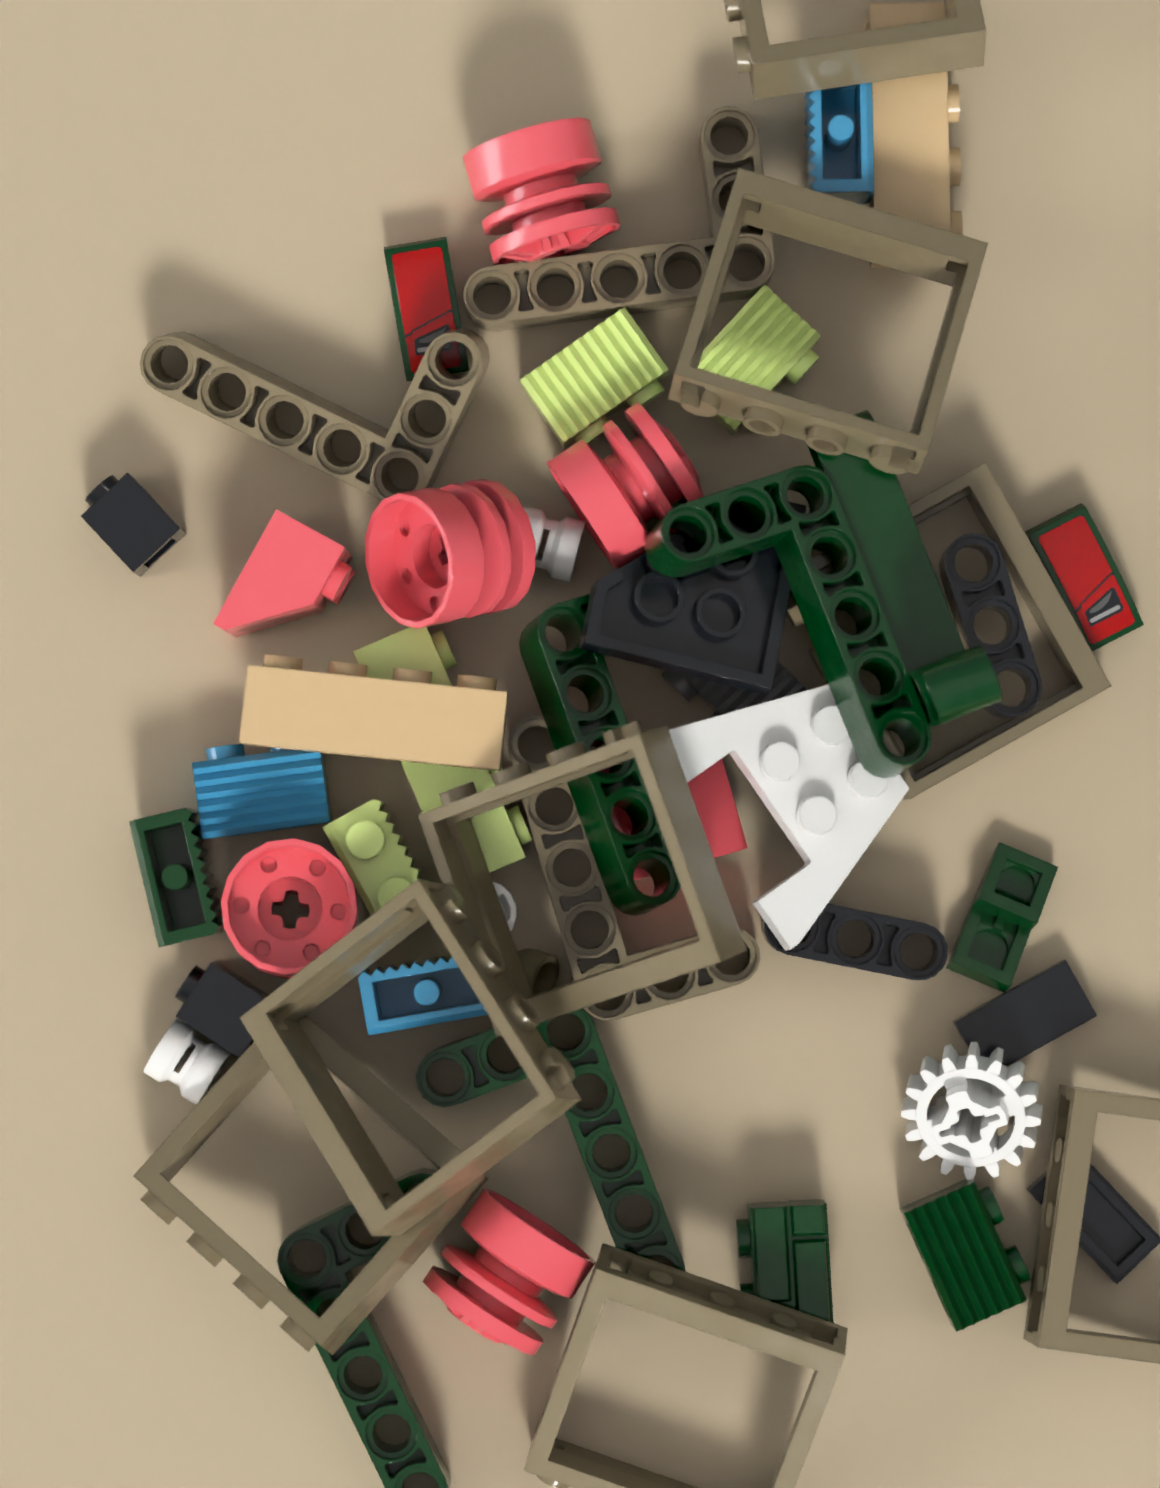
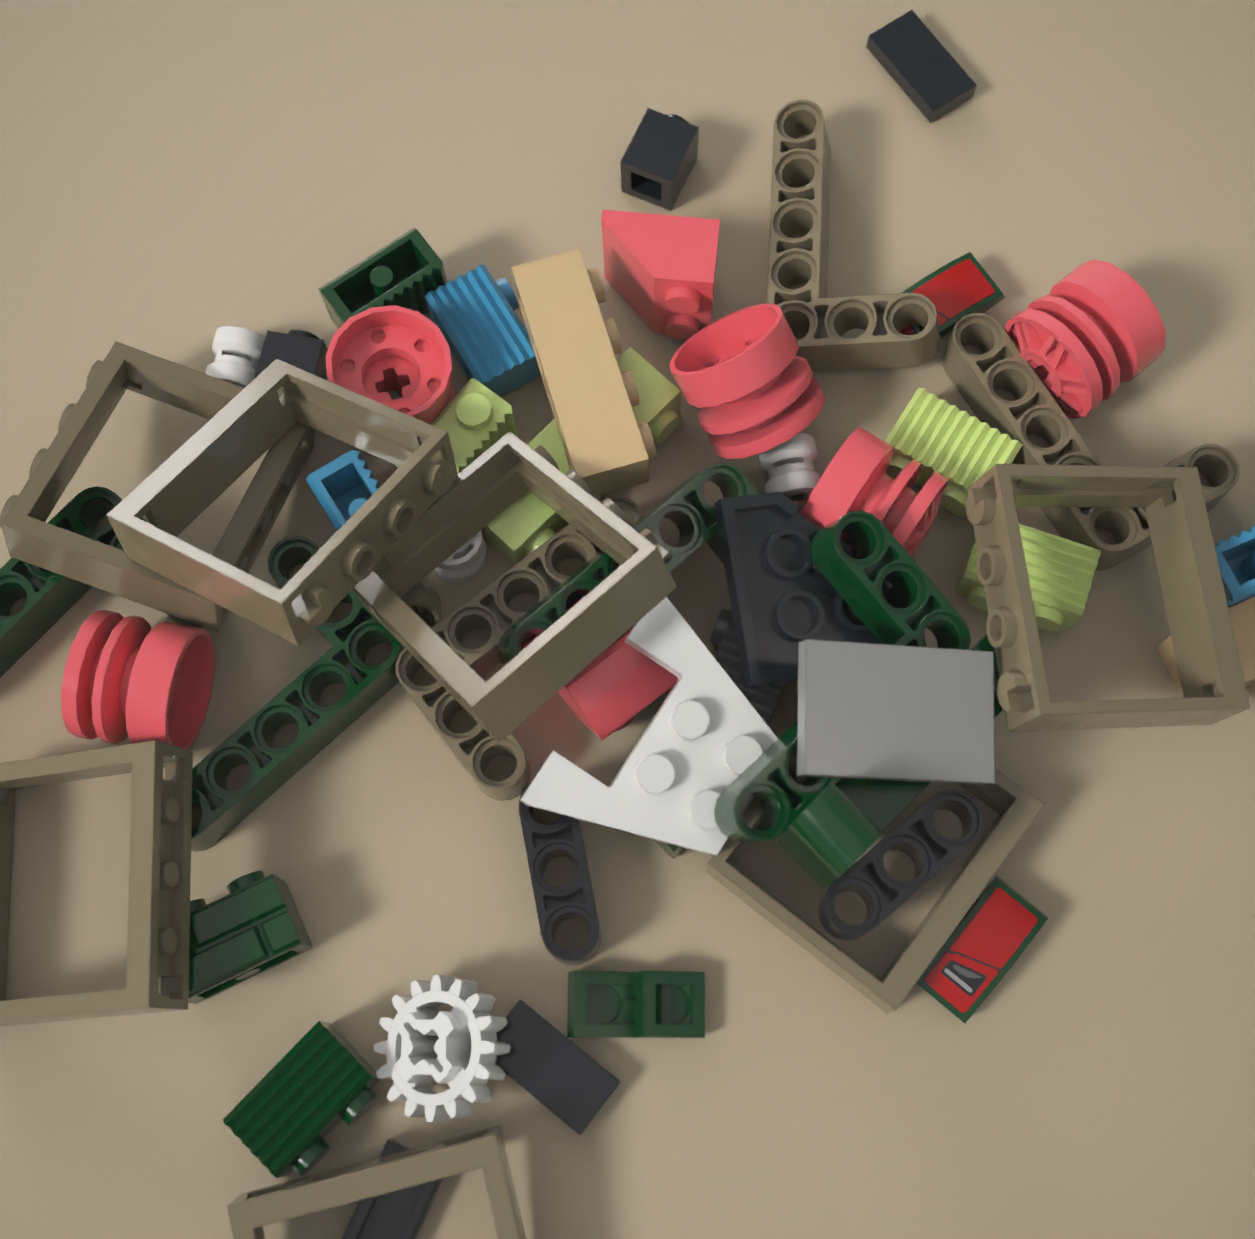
camera: 70 degrees right, 15 degrees down
(131, 189) = (921, 66): none -> black tile
(863, 574) = (895, 713): none -> light grey tile

